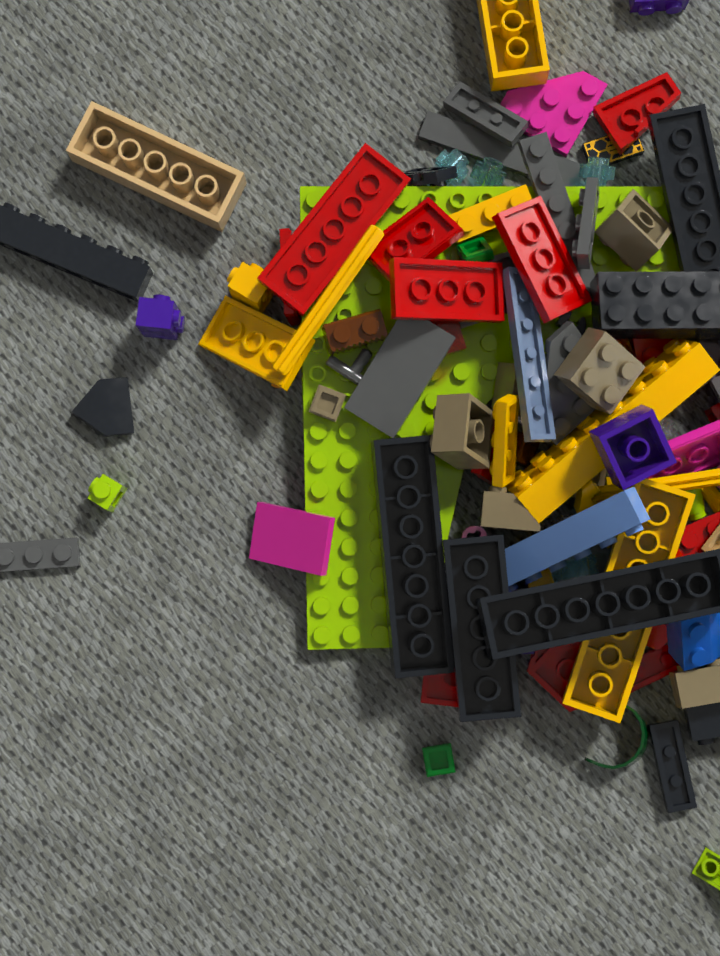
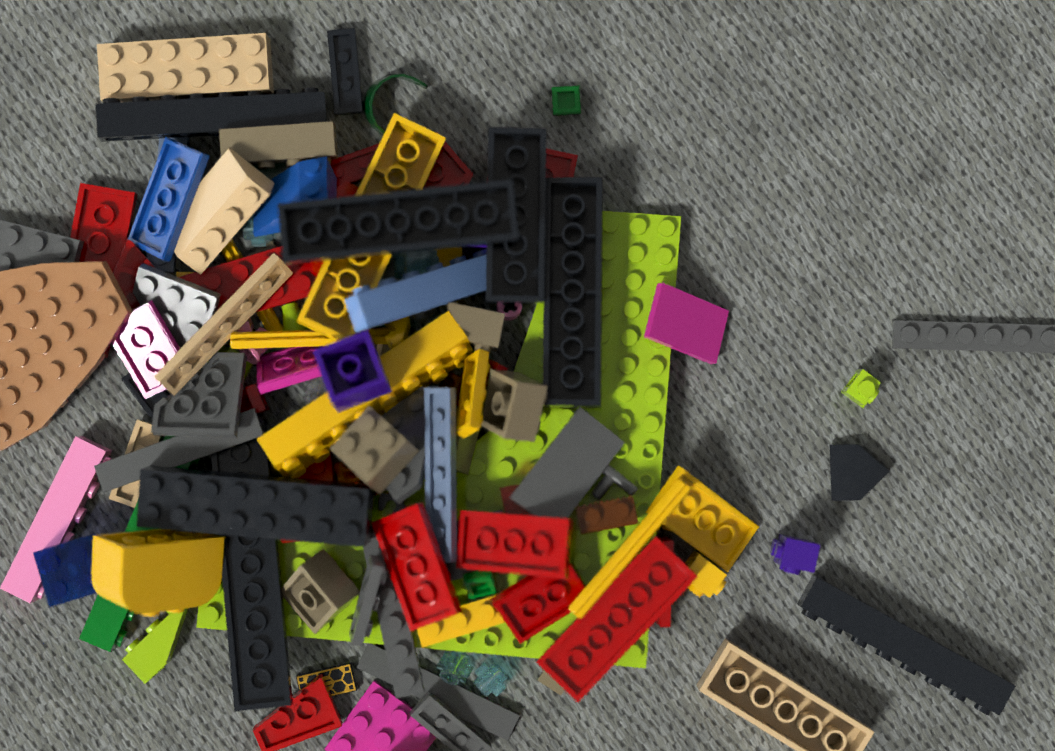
camera: 170 degrees left, 5 degrees up
(327, 403) = (640, 449): dark tan tile -> none
(431, 175) = (517, 669): black wing -> none
(598, 168) = (347, 657): clear light blue gear -> none

